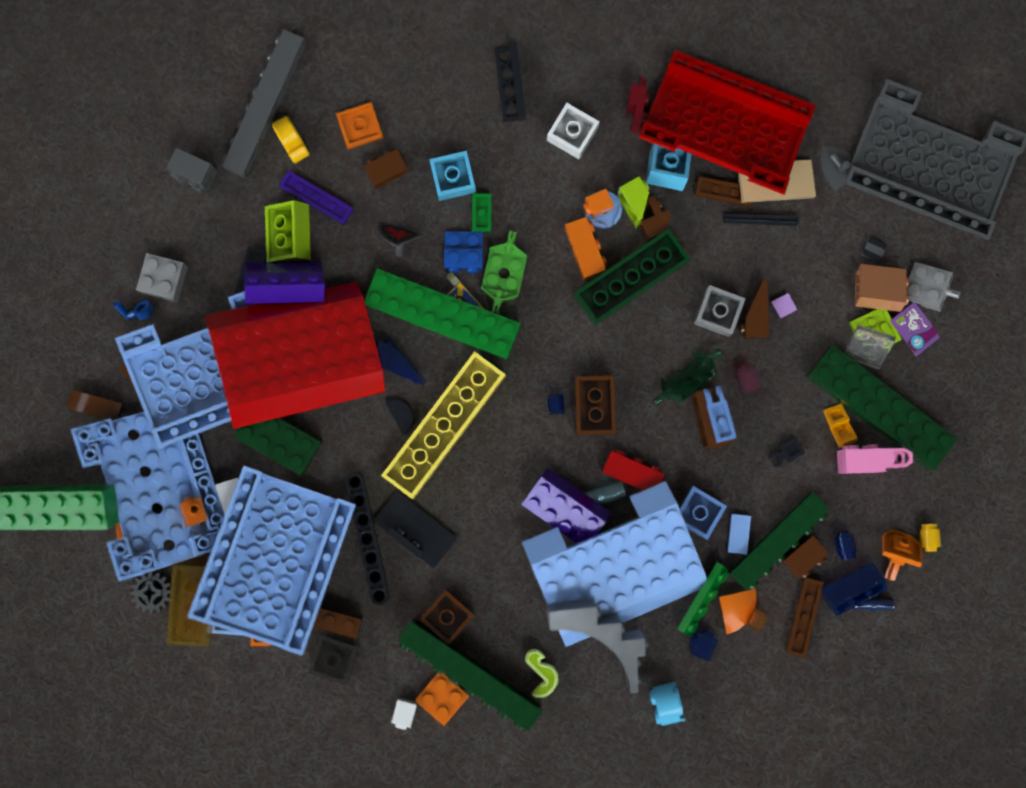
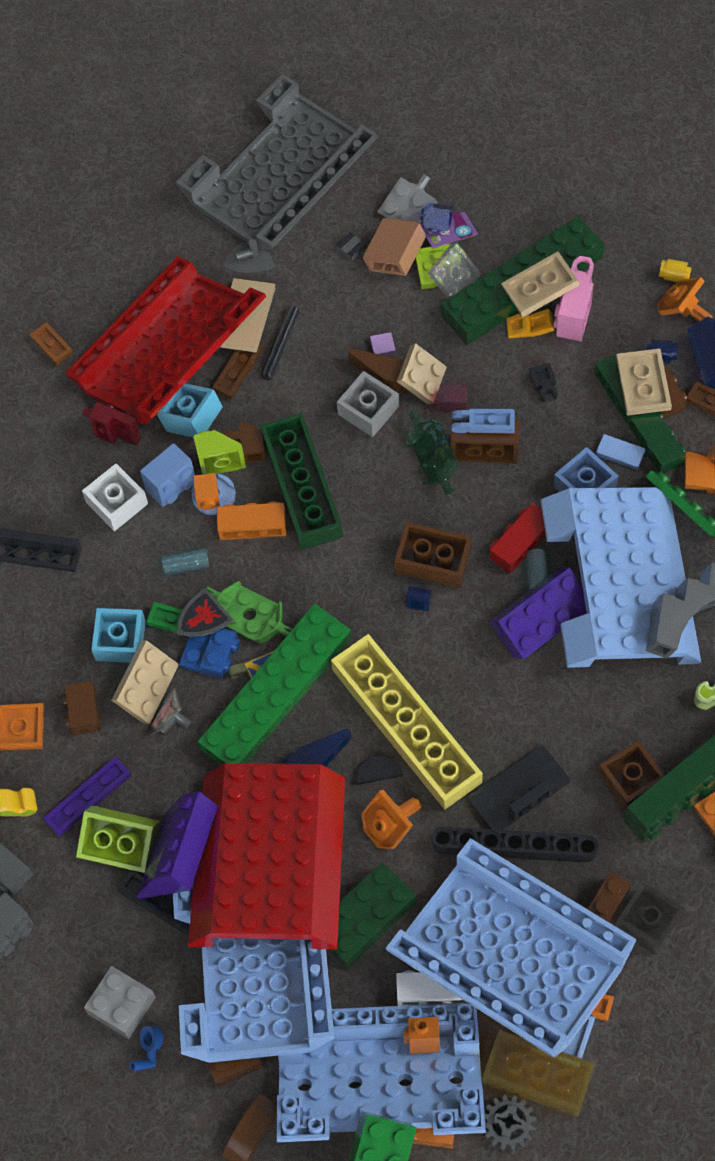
camera: 70 degrees left, 20 degrees down
(356, 435) = (386, 821): none -> orange piece
(418, 210) = (145, 682): none -> tan plate
(485, 237) = (202, 616): none -> shield
(534, 207) = (185, 562): none -> clear light blue axle
(603, 168) = (168, 475): none -> medium blue brick
(702, 28) = (51, 344): none -> dark orange plate
(761, 347) = (421, 374): none -> tan plate
(804, 538) = (643, 382): none -> tan plate
(870, 426) = (540, 284): none -> tan plate
(920, 316) = (436, 217): none -> clear blue brick

